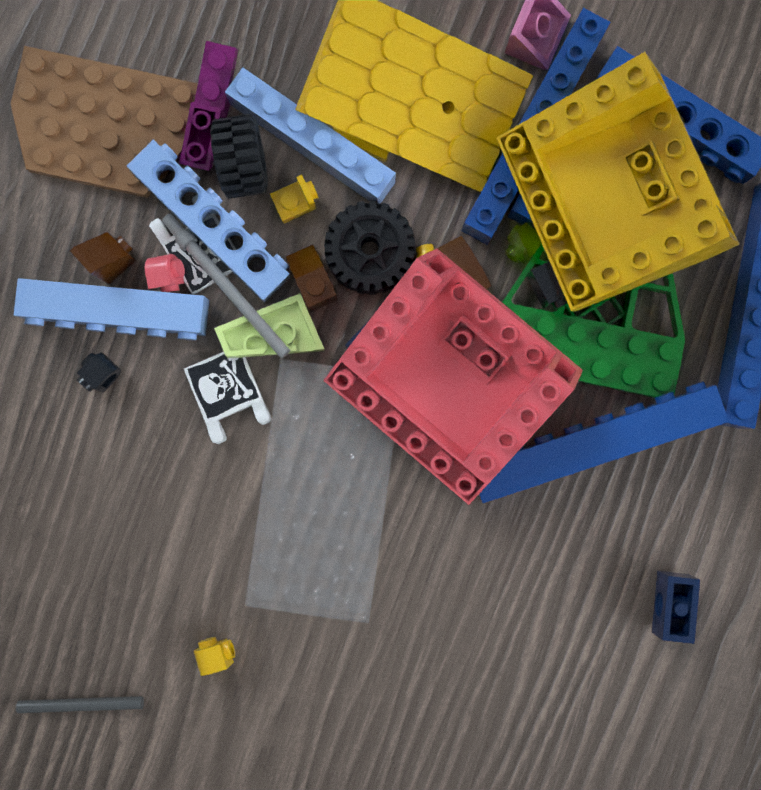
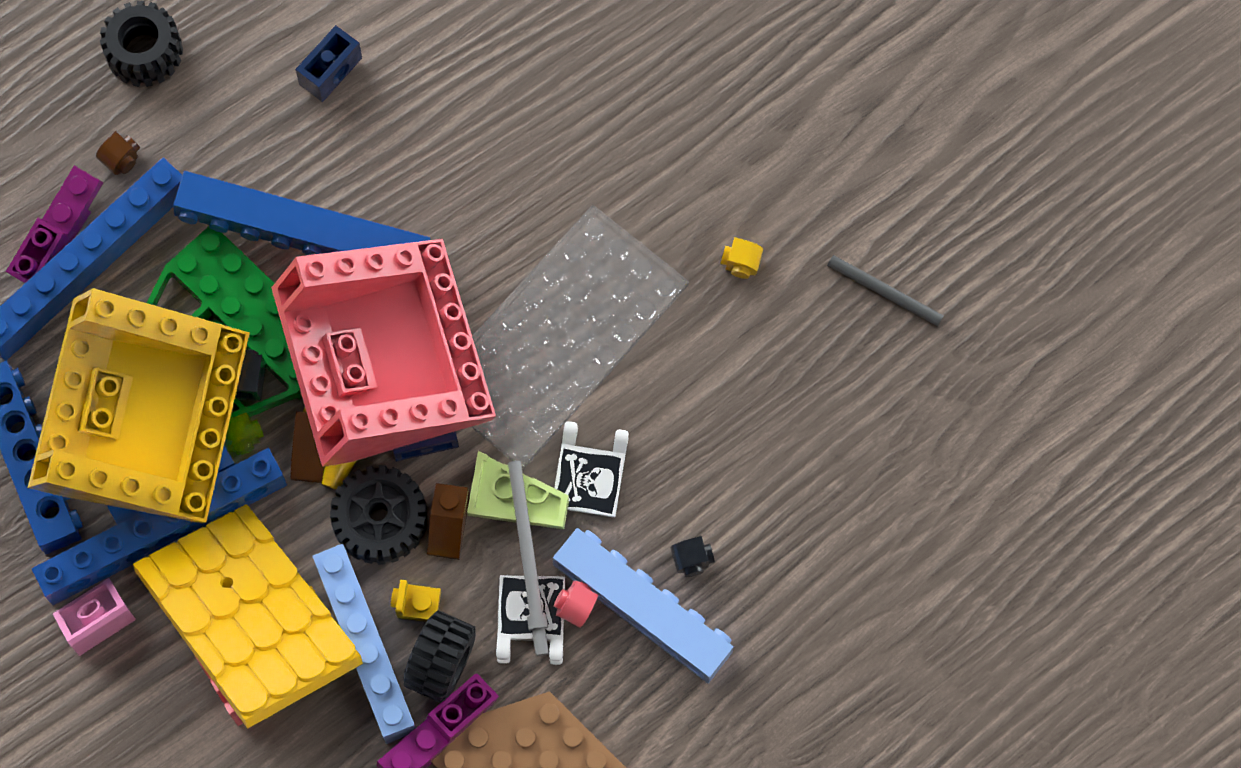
camera: 150 degrees left, 15 degrees down
(104, 256) = (618, 650): reddish brown slope -> none
(147, 169) = (529, 700): light blue brick -> none

